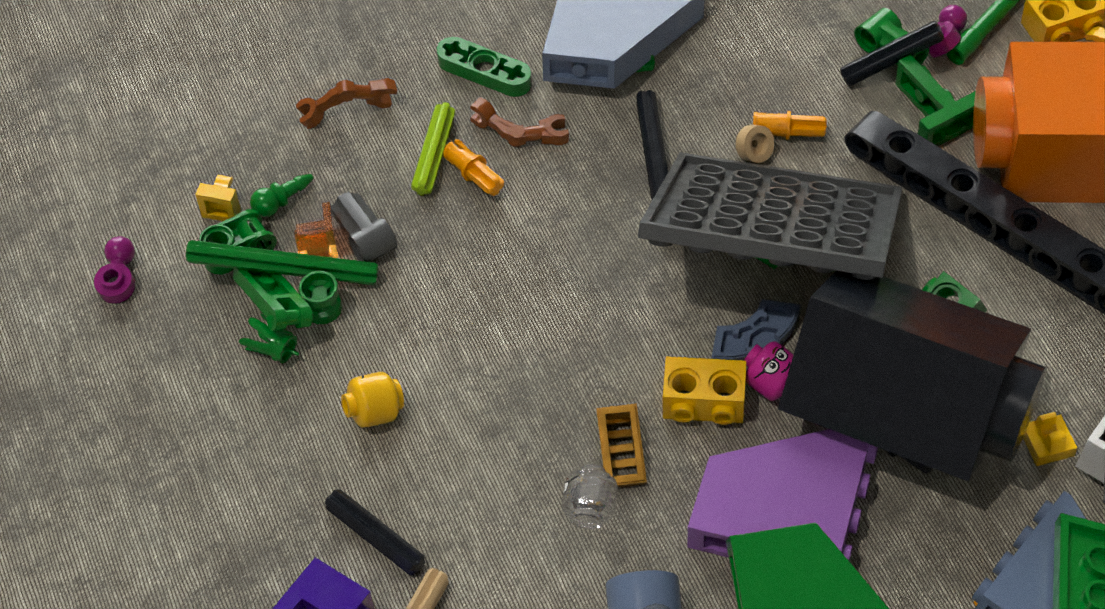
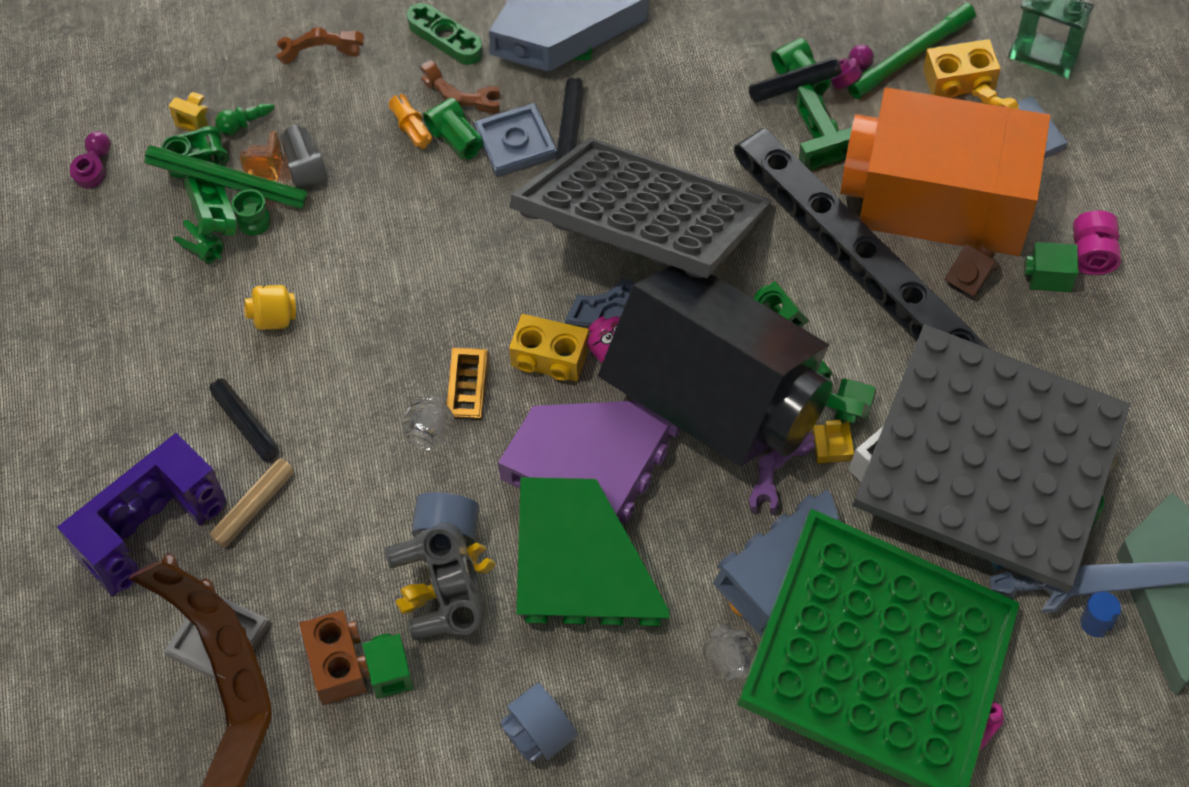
camera: 10 degrees right, 5 degrees up
(433, 148) = (379, 102): lime axle -> none
(519, 161) = (450, 123): none -> green piece
(596, 169) = (515, 139): none -> sand blue tile
(754, 143) = (655, 140): tan tile -> none
(791, 125) = (689, 128): light orange axle -> none
(989, 503) = (767, 464): none -> medium lavender piece
(1060, 390) = (852, 401): none -> green bracket

